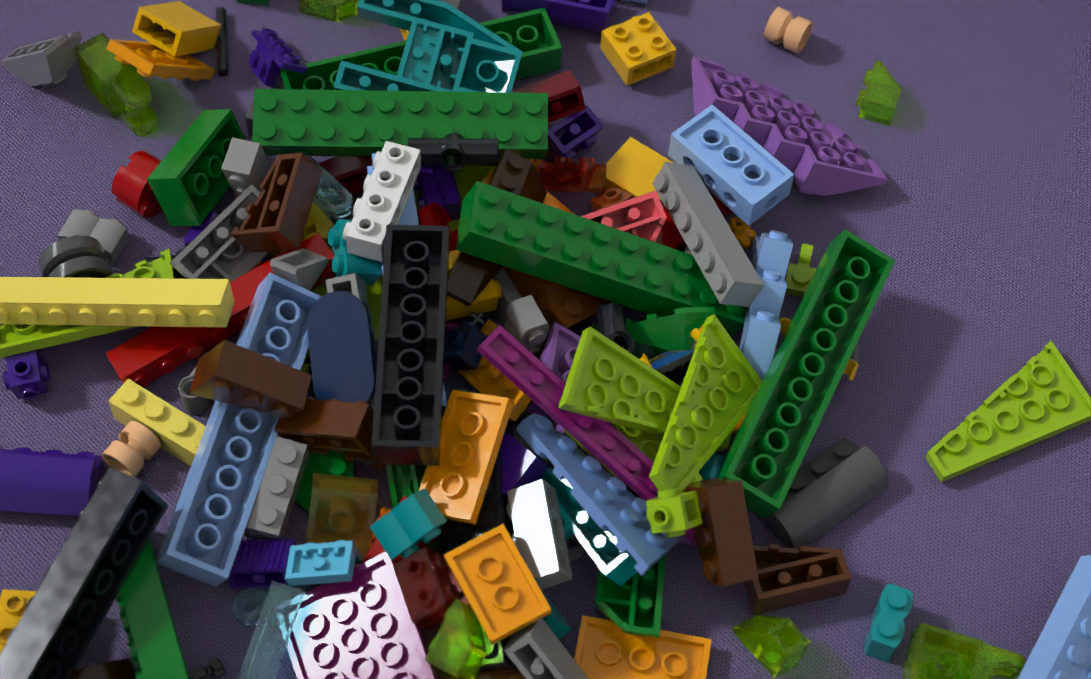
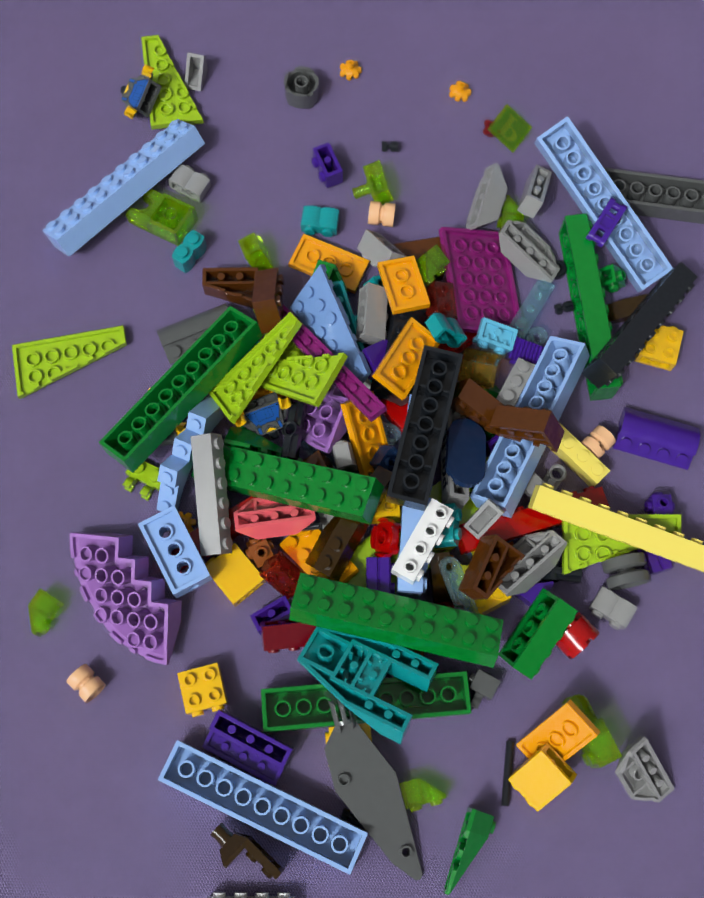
camera: 165 degrees left, 15 degrees up
(245, 165) = (510, 611): light grey brick -> none
(271, 56) = (472, 733): dark purple bracket -> none
(471, 151) = (366, 578): black piece -> none
(673, 512) = (295, 297): lime brick -> none

